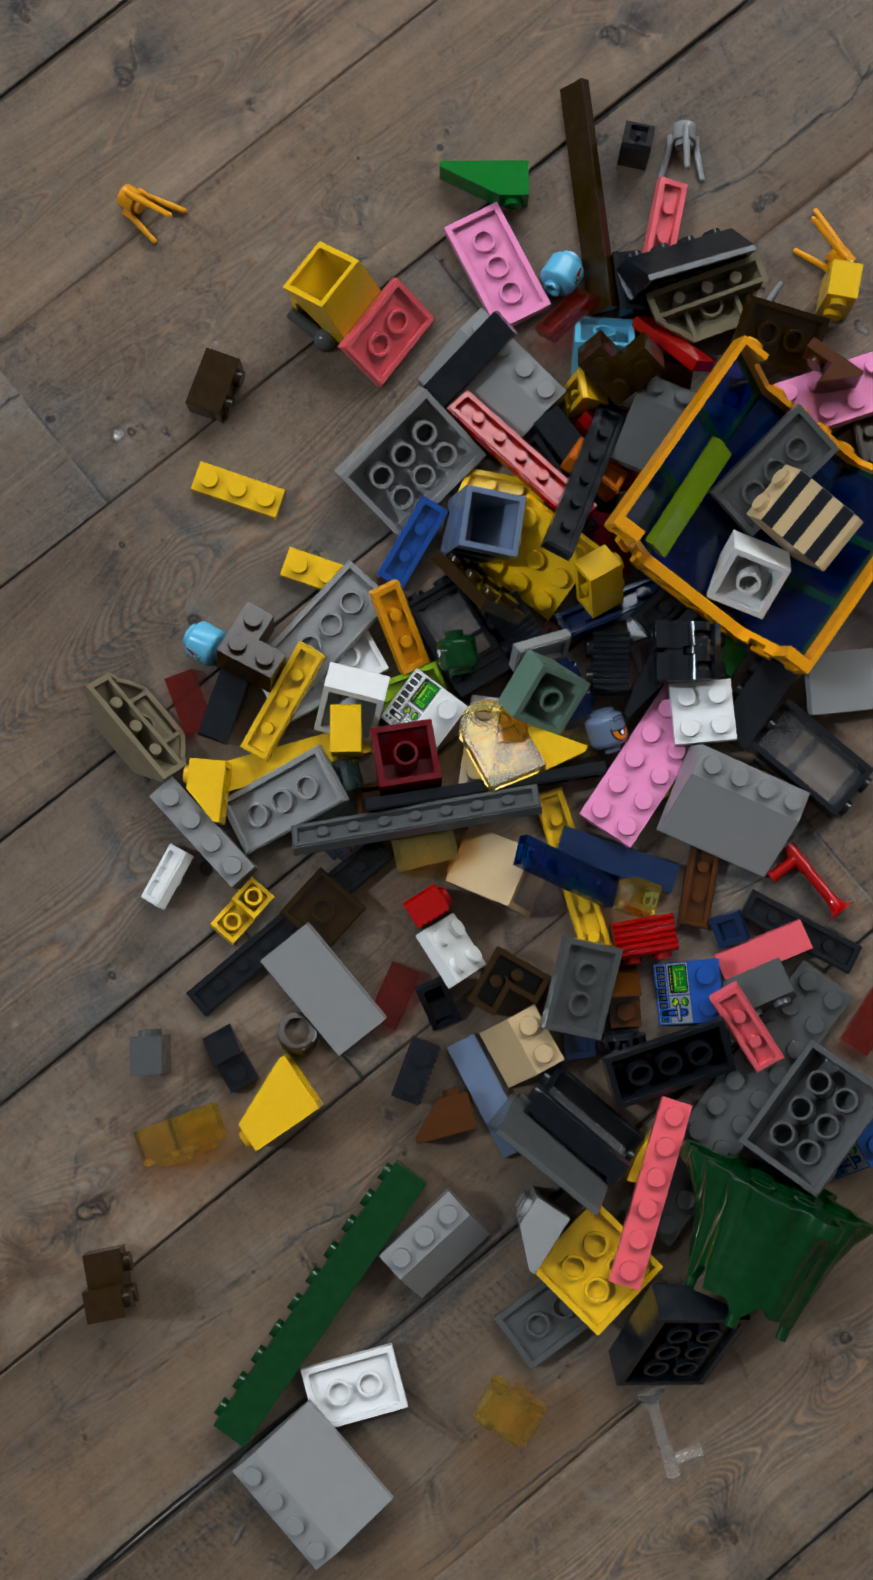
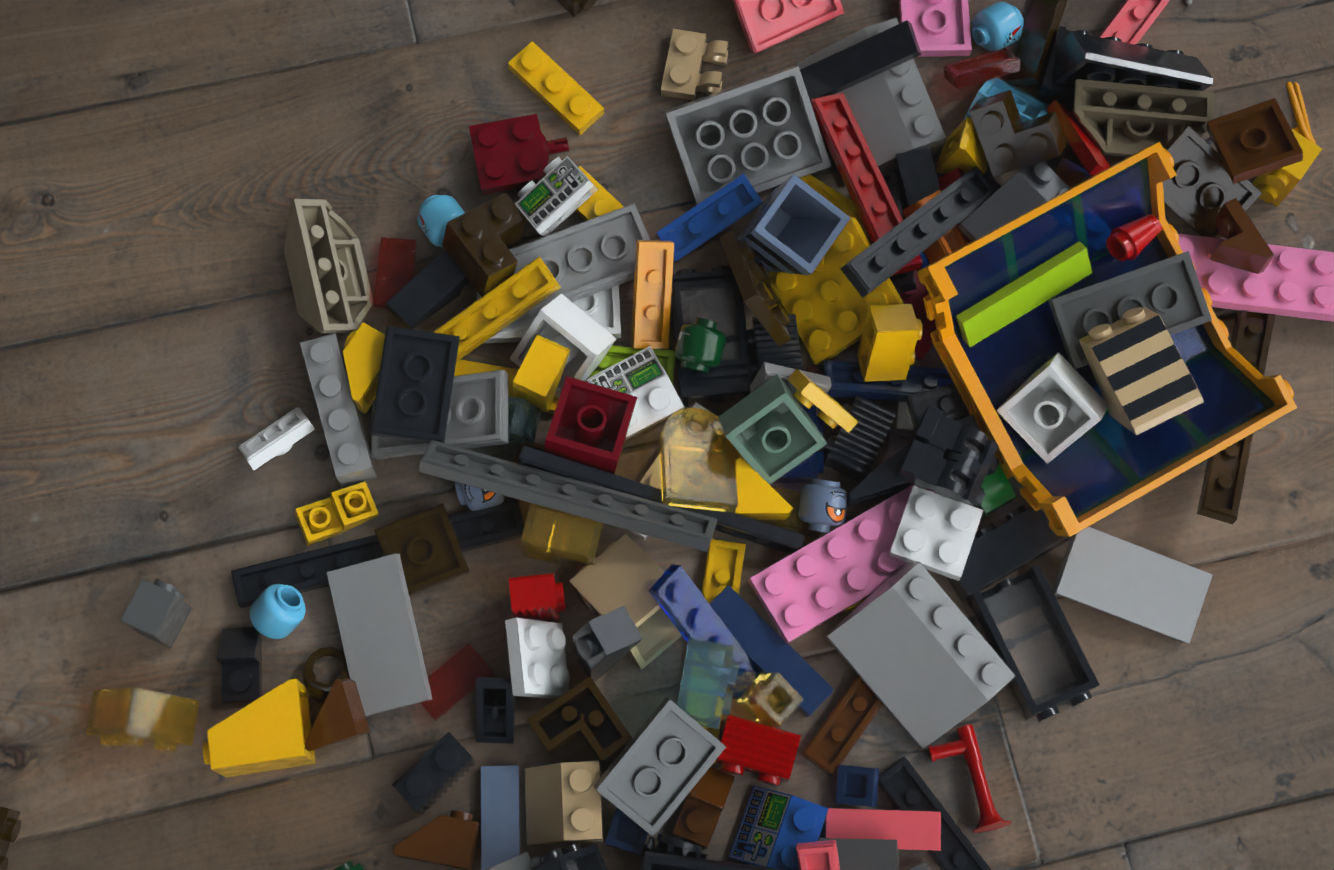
camera: 20 degrees right, 10 degrees down
(233, 563) = (512, 153): none -> dark red plate
(238, 1007) = (277, 611): none -> medium azure head
(256, 788) = (415, 385): none -> black tile
(286, 585) = (555, 195): none -> slope
(327, 1064) = (339, 718): none -> reddish brown slope
(329, 422) = (684, 65): none -> tan plate
(499, 916) = (605, 641): none -> black slope
(579, 655) = (830, 410): none -> yellow plate
(585, 908) = (705, 681): none -> clear light blue brick
(751, 413) = (1131, 238): none -> red cone
(809, 283) = (1254, 141): none -> reddish brown plate

